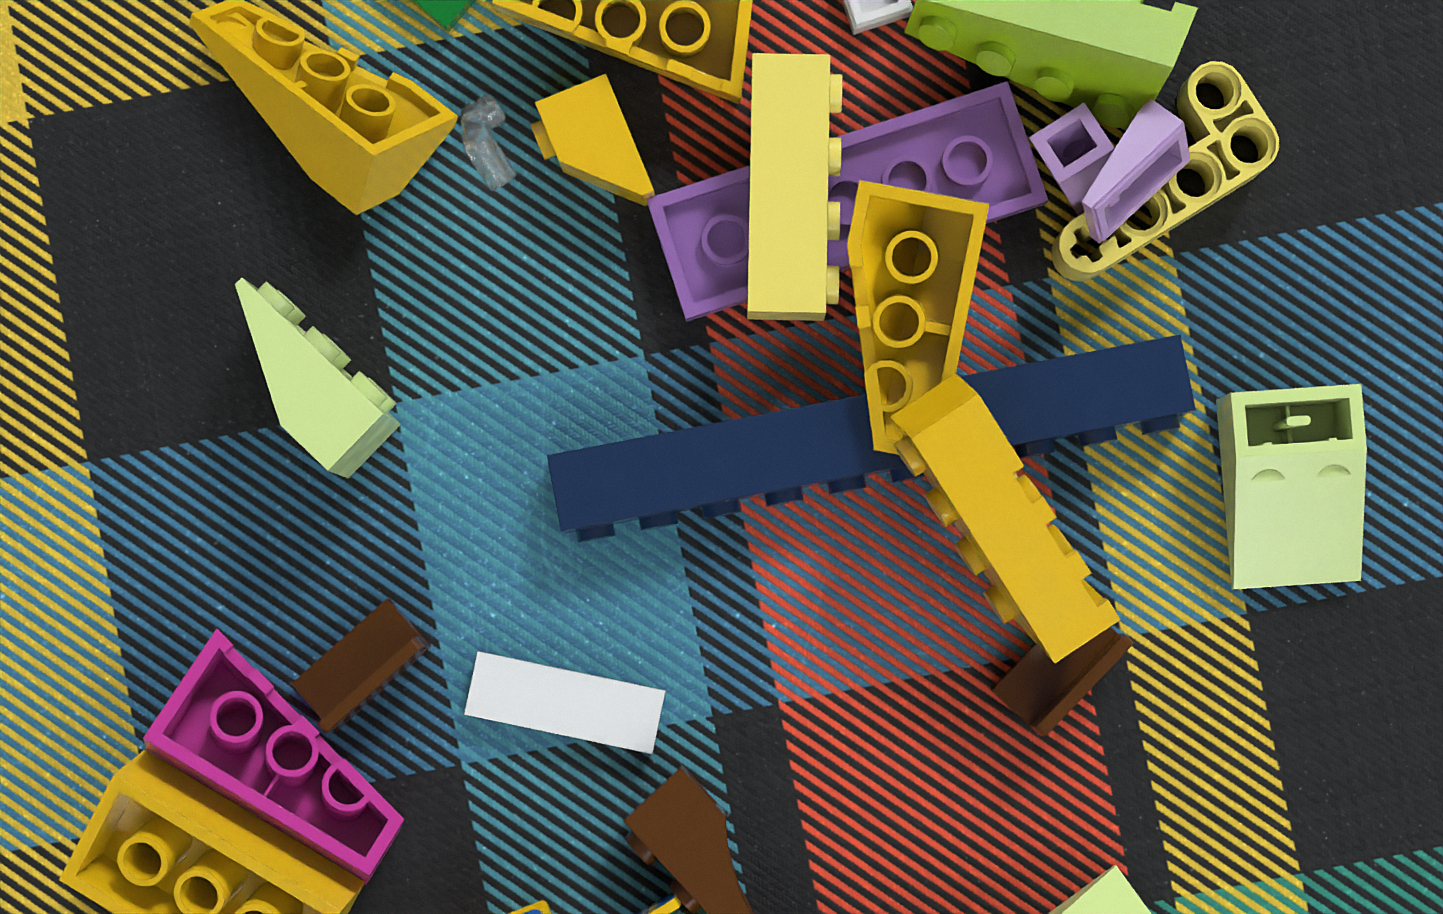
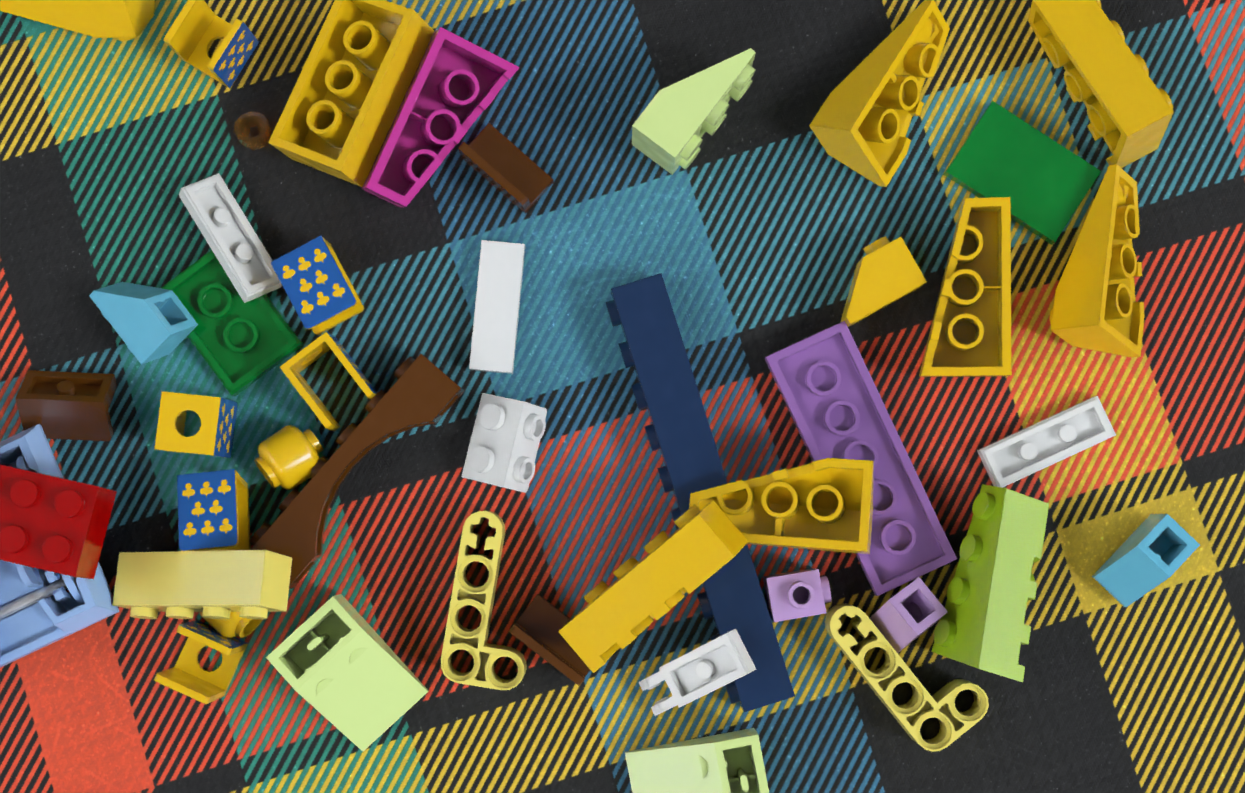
camera: 75 degrees right, 0 degrees up
(481, 146) = (869, 203): clear arm -> none
(767, 713) = (505, 442): none -> white bracket
(790, 187) = (864, 415): light yellow brick -> none
(990, 771) = (483, 599): none -> light yellow beam
(1033, 315) = (796, 594): none -> lavender brick
(1131, 465) = (701, 671): none -> white hinge
(1138, 167) = (906, 653): lavender slope -> none

